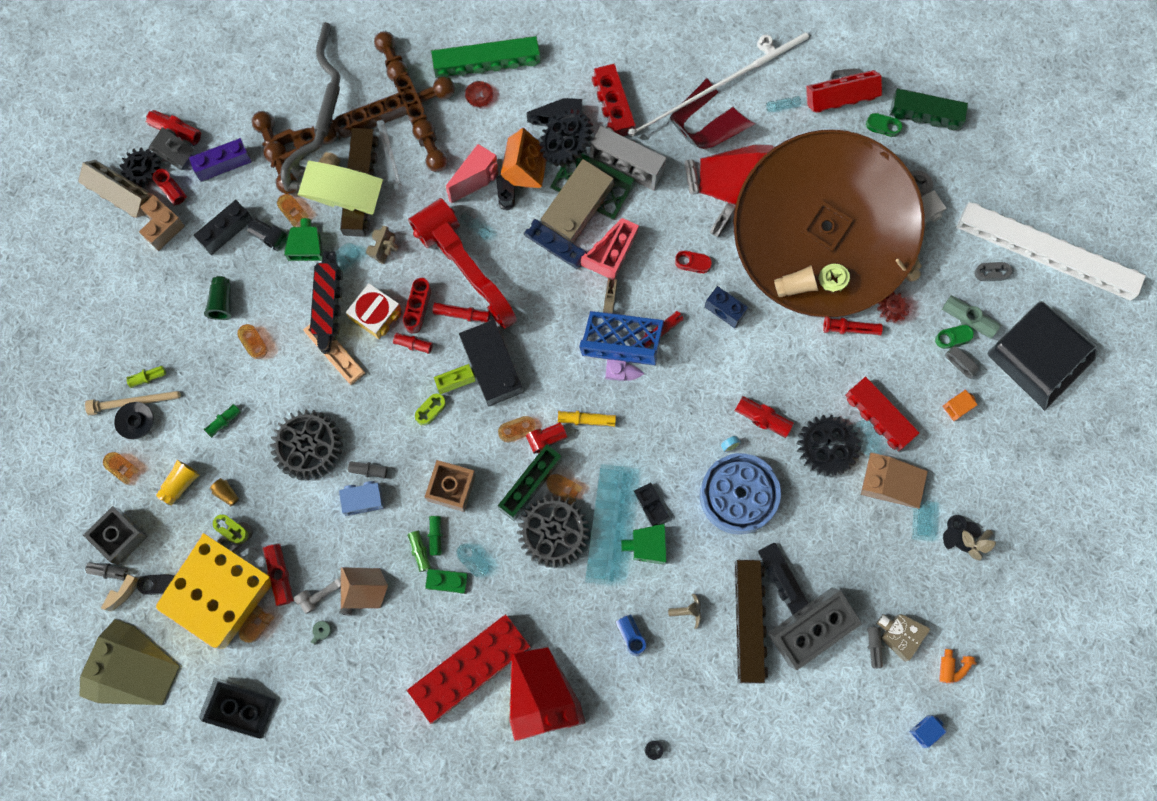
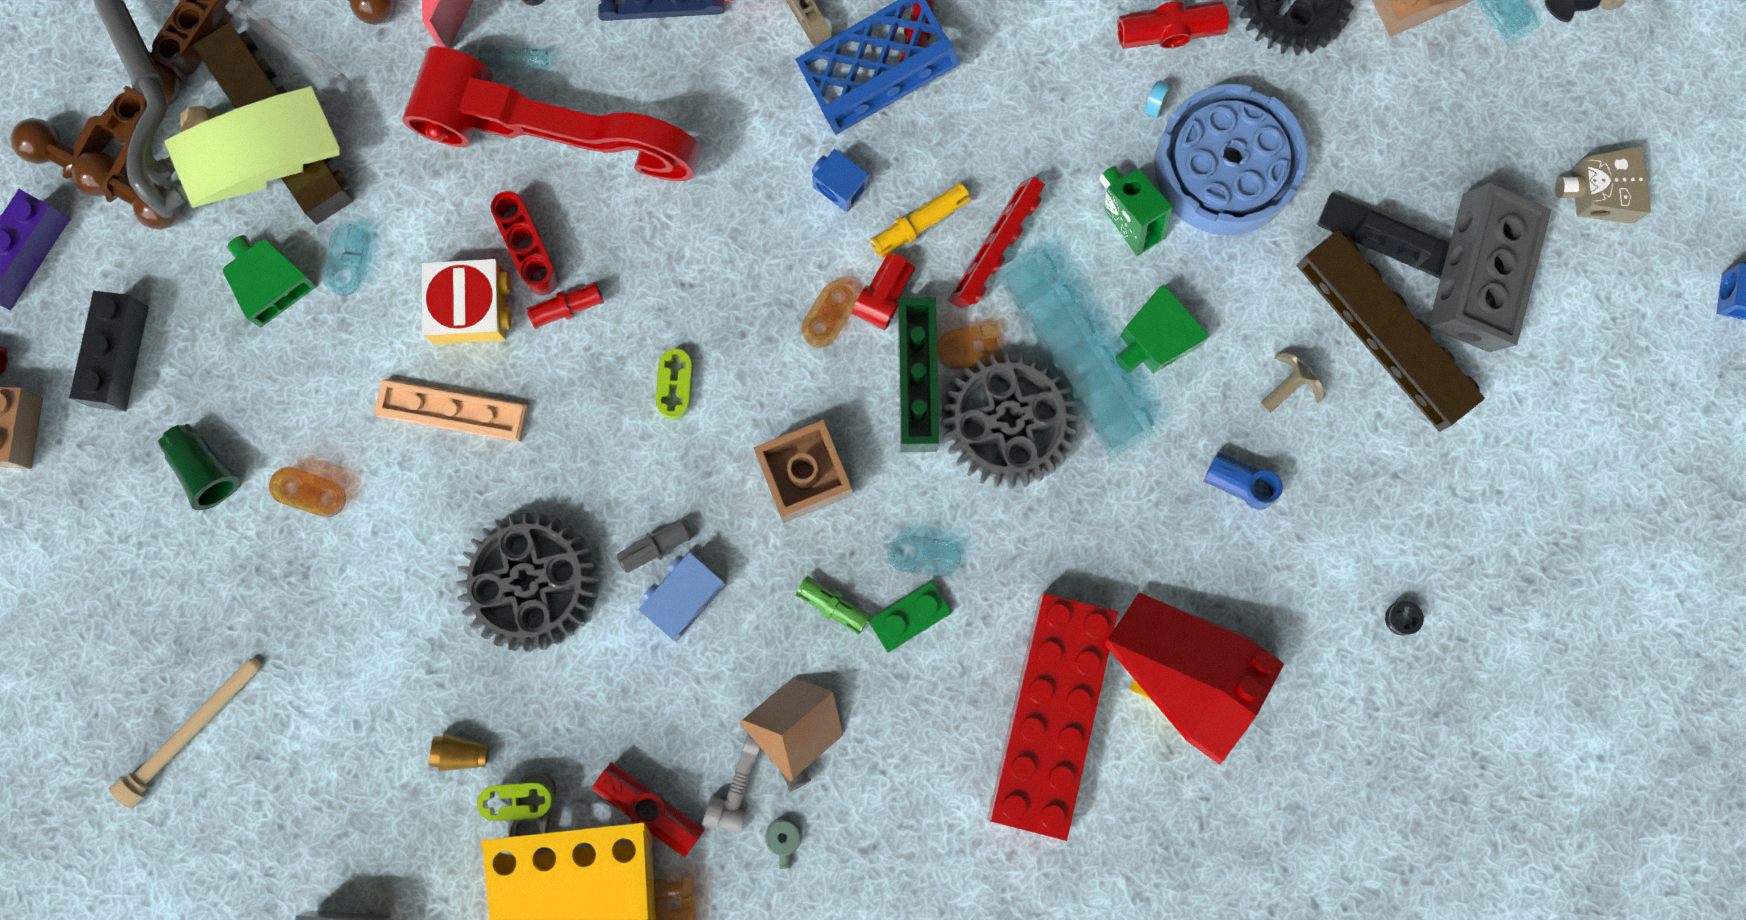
camera: 40 degrees left, 5 degrees up
(114, 464) = (241, 847): clear orange plate -> none
(127, 414) = (198, 762): black dish -> none
(145, 376) = (176, 676): lime axle -> none
(177, 482) = (368, 798): yellow plant -> none
(222, 420) = (361, 648): green pin -> none
(269, 235) = (200, 308): black piece -> none
(288, 204) = (188, 239): clear orange plate -> none
(325, 301) = (375, 342): black hinge -> none
(384, 245) = (396, 189): dark tan hips -> none
(435, 535) = (838, 563): green axle -> none
(454, 379) = (674, 310): lime plate -> none
(469, 314) = (607, 201): red pin -> none
(491, 363) = (711, 244): black brick -> none
(566, 376) = (839, 179): none -> blue brick
(601, 457) = (1004, 232): none -> red plate
(622, 371) = (912, 113): lavender plate -> none
(651, 505) = (1116, 275): black slope -> none
(680, 483) = (1136, 208): none -> green torso
(875, 647) = (1585, 232): dark grey axle -> none
(947, 667) = (1699, 183): orange plant -> none

